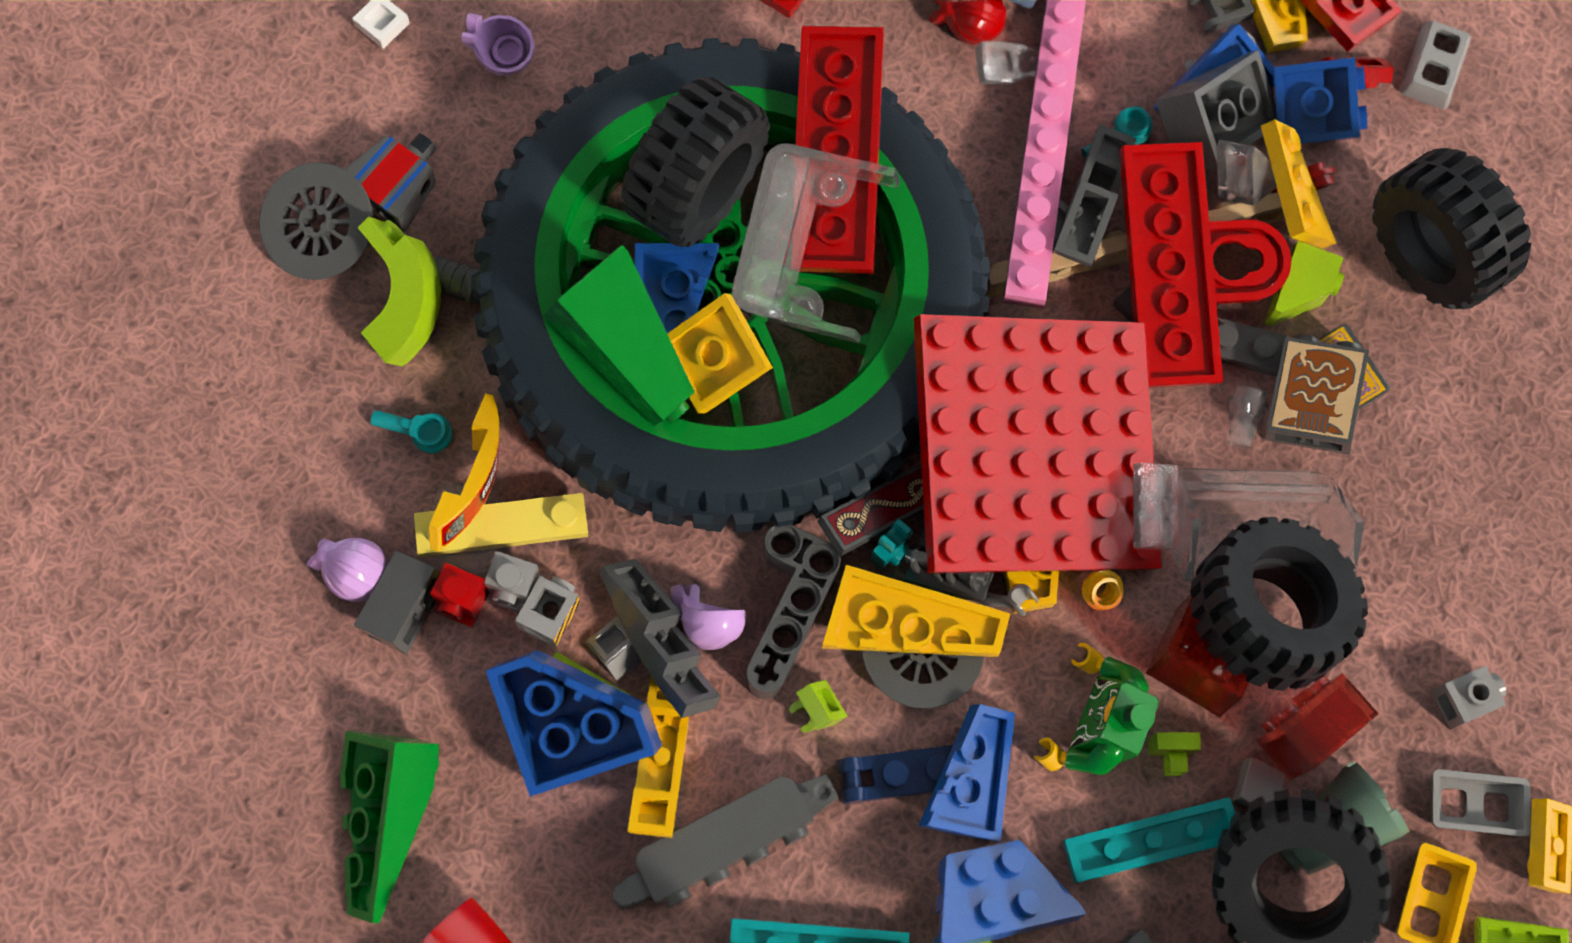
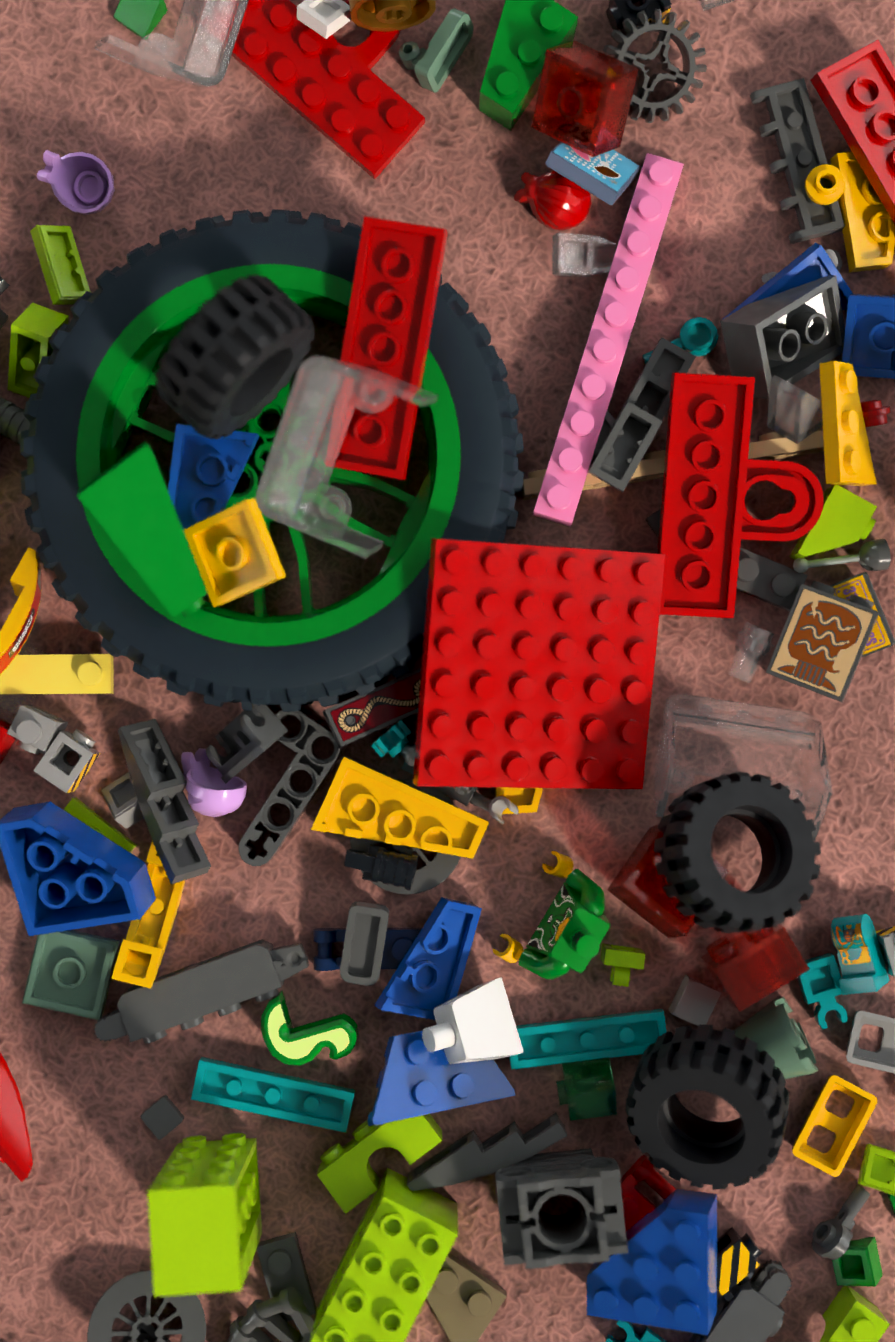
camera: 15 degrees right, 15 degrees up
(468, 191) = (29, 344): none -> lime slope
(487, 123) = (60, 263): none -> lime plate
(575, 841) = (71, 973): none -> sand green plate
(739, 561) = (245, 740): none -> dark grey hinge
(821, 706) = (304, 879): lime tile -> none
(845, 884) = (304, 1042): none -> green animal
(897, 760) = (364, 943): none -> dark grey piece
(905, 675) = (384, 865): none -> black hinge
(1033, 835) = (475, 1026): none -> white torso
(1109, 597) = (585, 811): yellow plate -> none
(1155, 506) = (643, 738): clear plate -> none
(1165, 891) = (587, 1089): none -> clear green brick
(1347, 309) = (871, 556): none -> hinge
(1389, 746) = (821, 986): none -> teal plate
(1421, 707) = (858, 954): none -> teal leg

